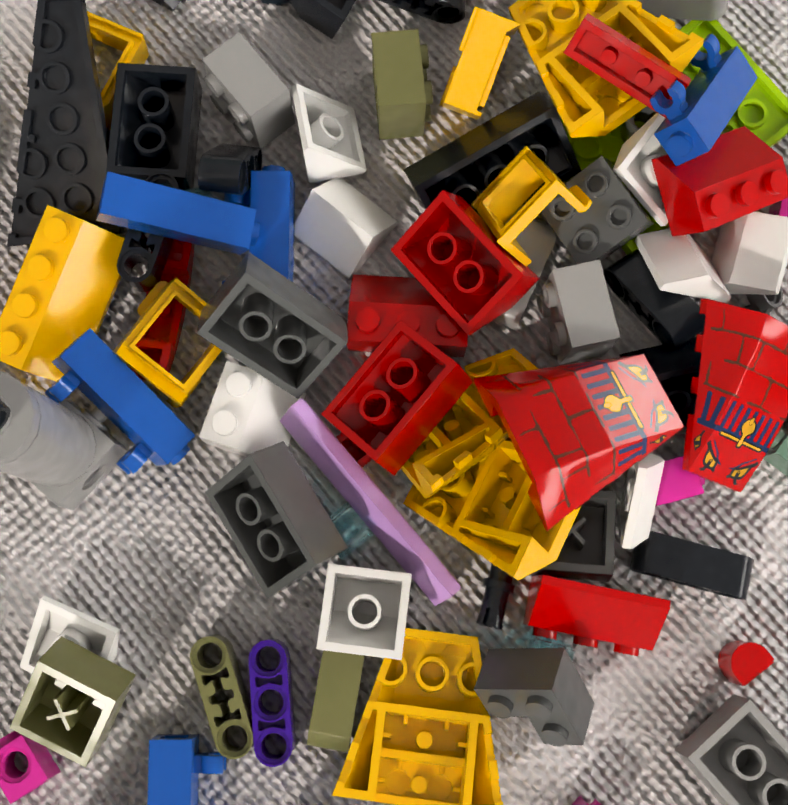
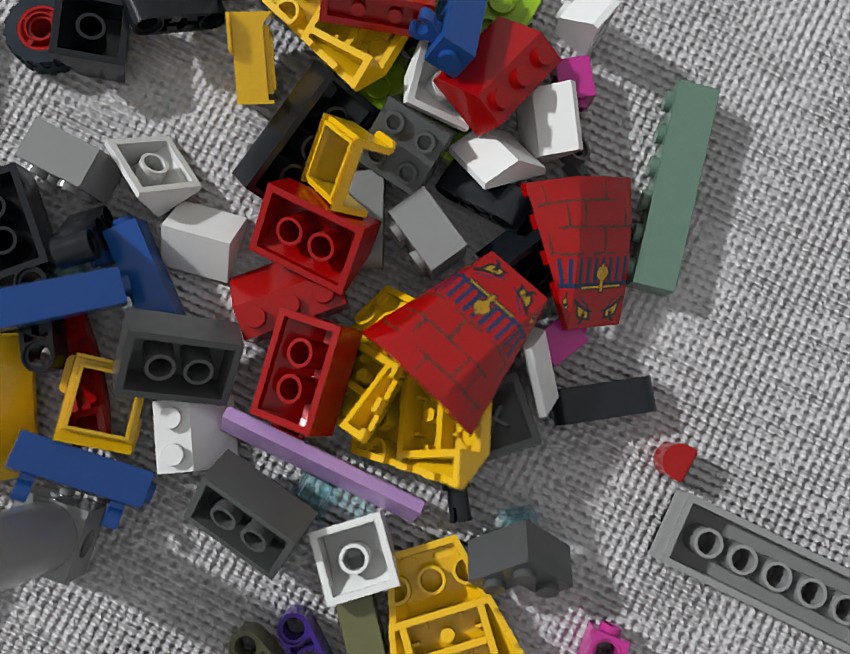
camera: 20 degrees left, 5 degrees up
(401, 83) = (196, 100): olive brick -> none
(594, 614) = (540, 476): red slope -> none

